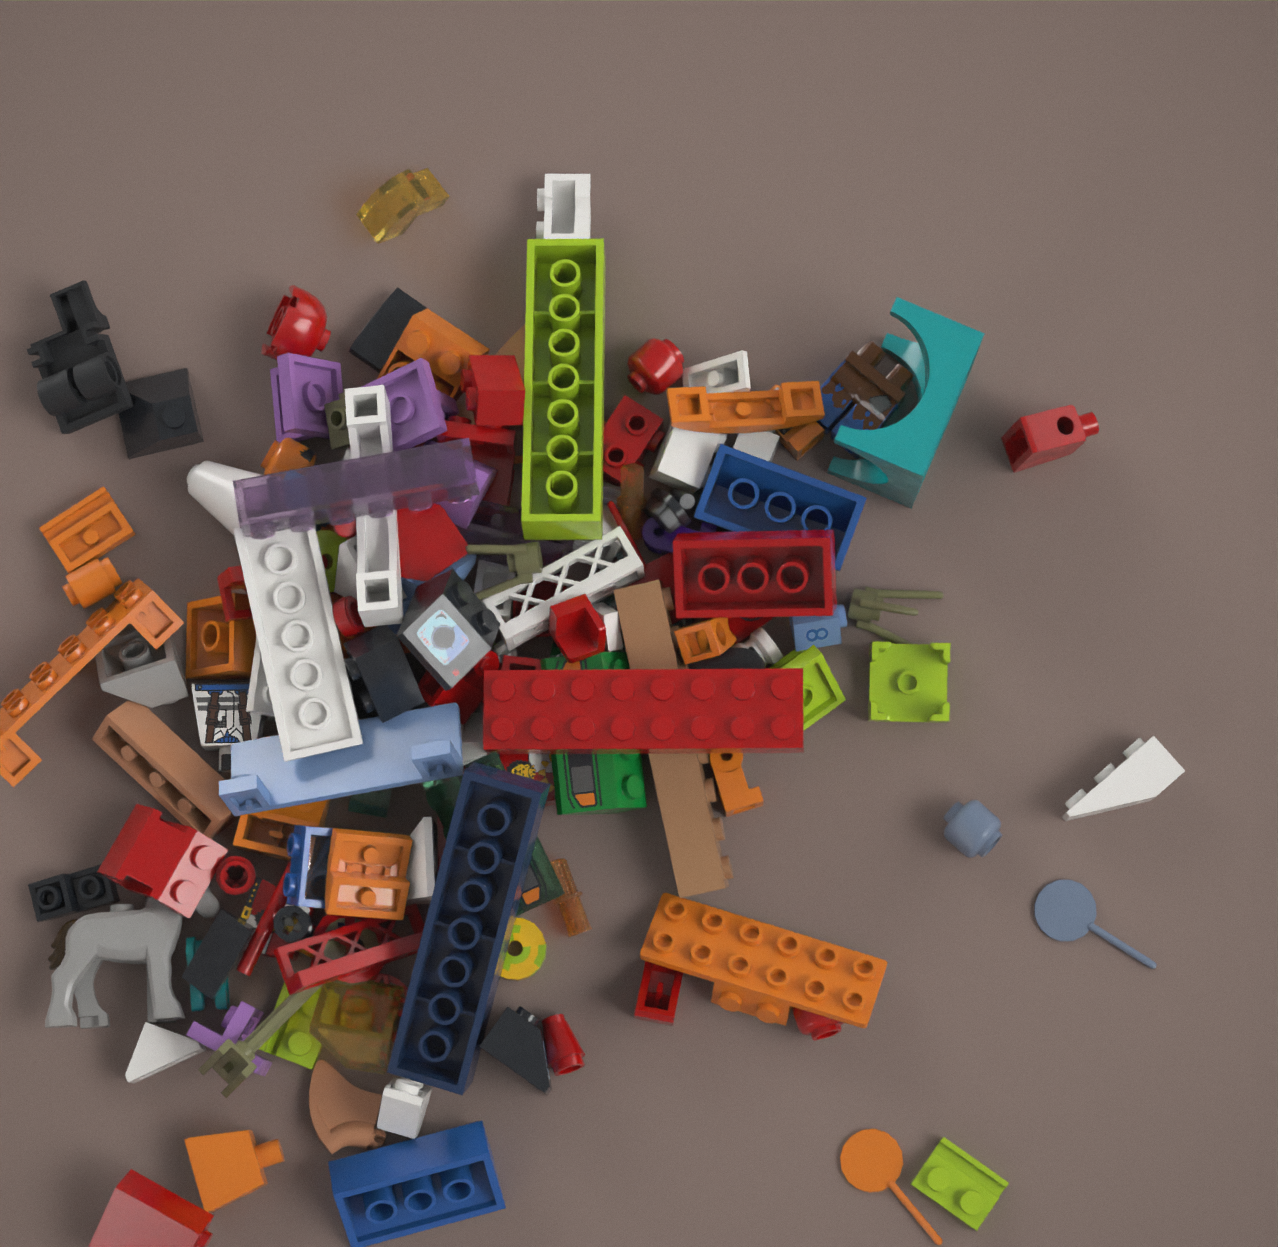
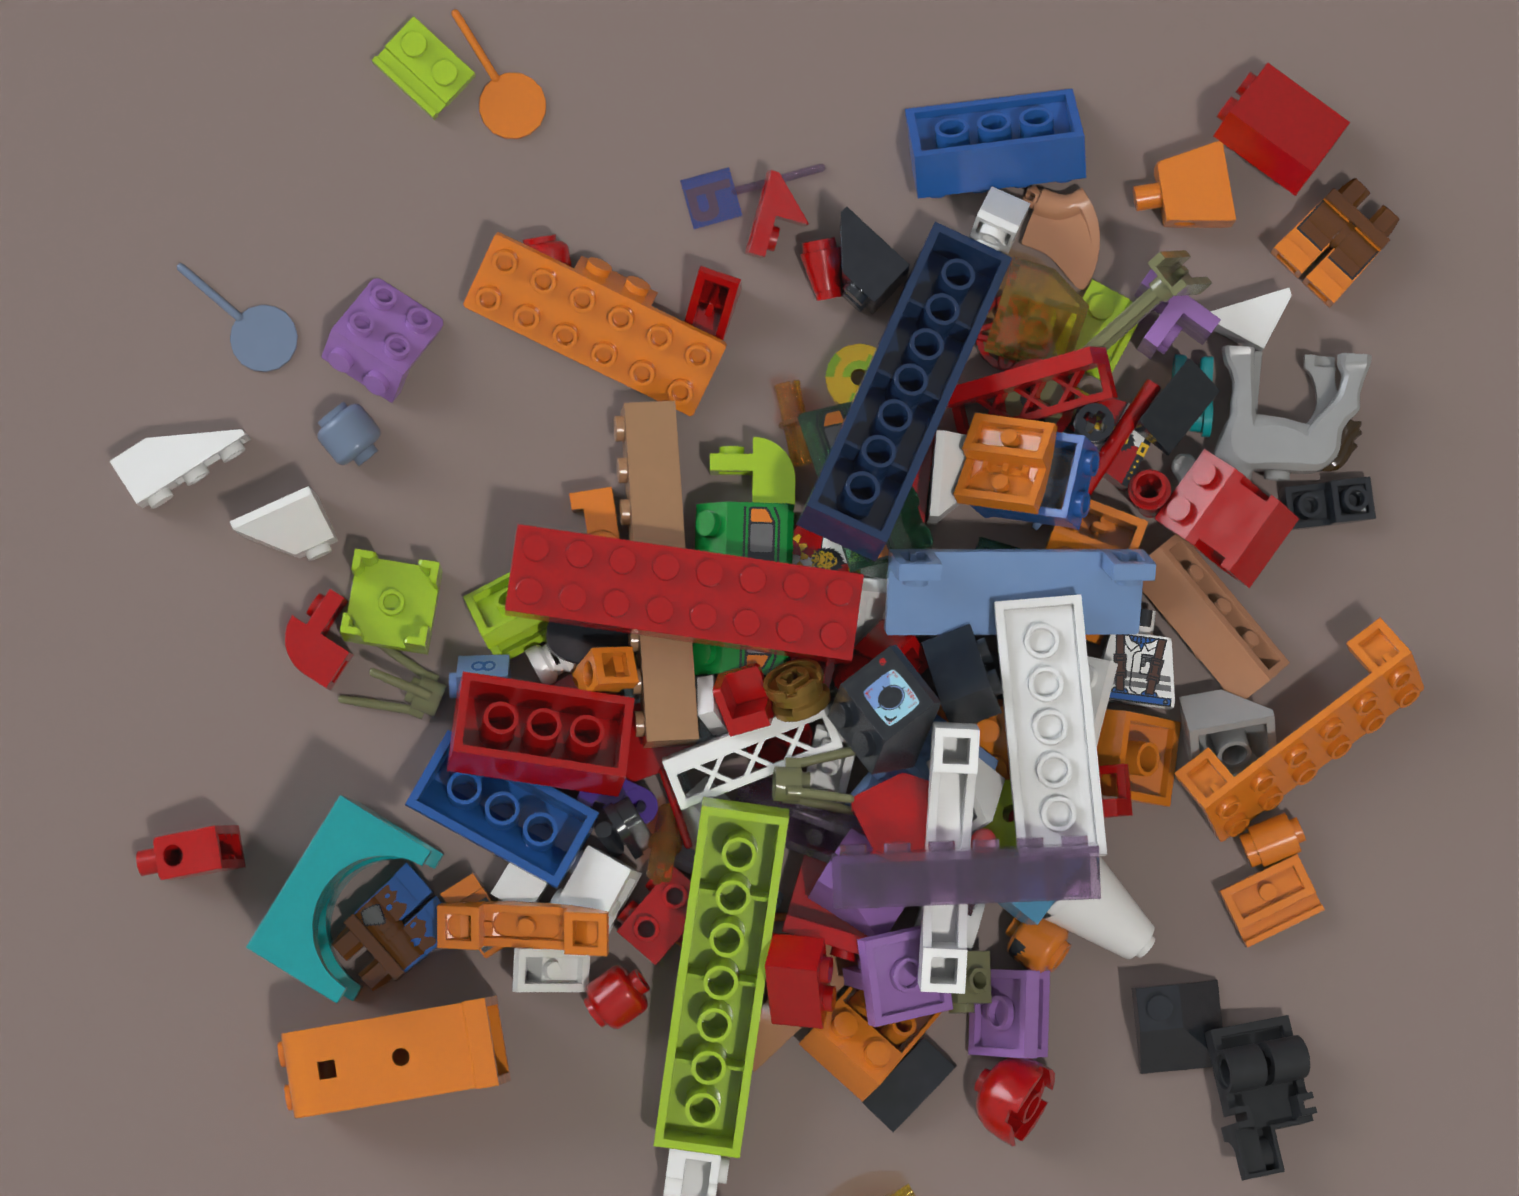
camera: 170 degrees left, 5 degrees up
(79, 1142) = (1345, 231): none -> hips
(347, 616) = (993, 743): red tile -> none
(530, 641) = (797, 690): none -> pearl gold wheel
(583, 849) = (768, 465): none -> lime brick
(615, 1095) = (774, 203): none -> red slope
(671, 1100) = (714, 197): none -> clear purple piece
(838, 280) = (394, 1058): none -> orange piece
(956, 923) = (381, 338): none -> medium lavender bracket
(975, 632) = (308, 646): none -> red brick
(1010, 735) = (290, 525): none -> white slope

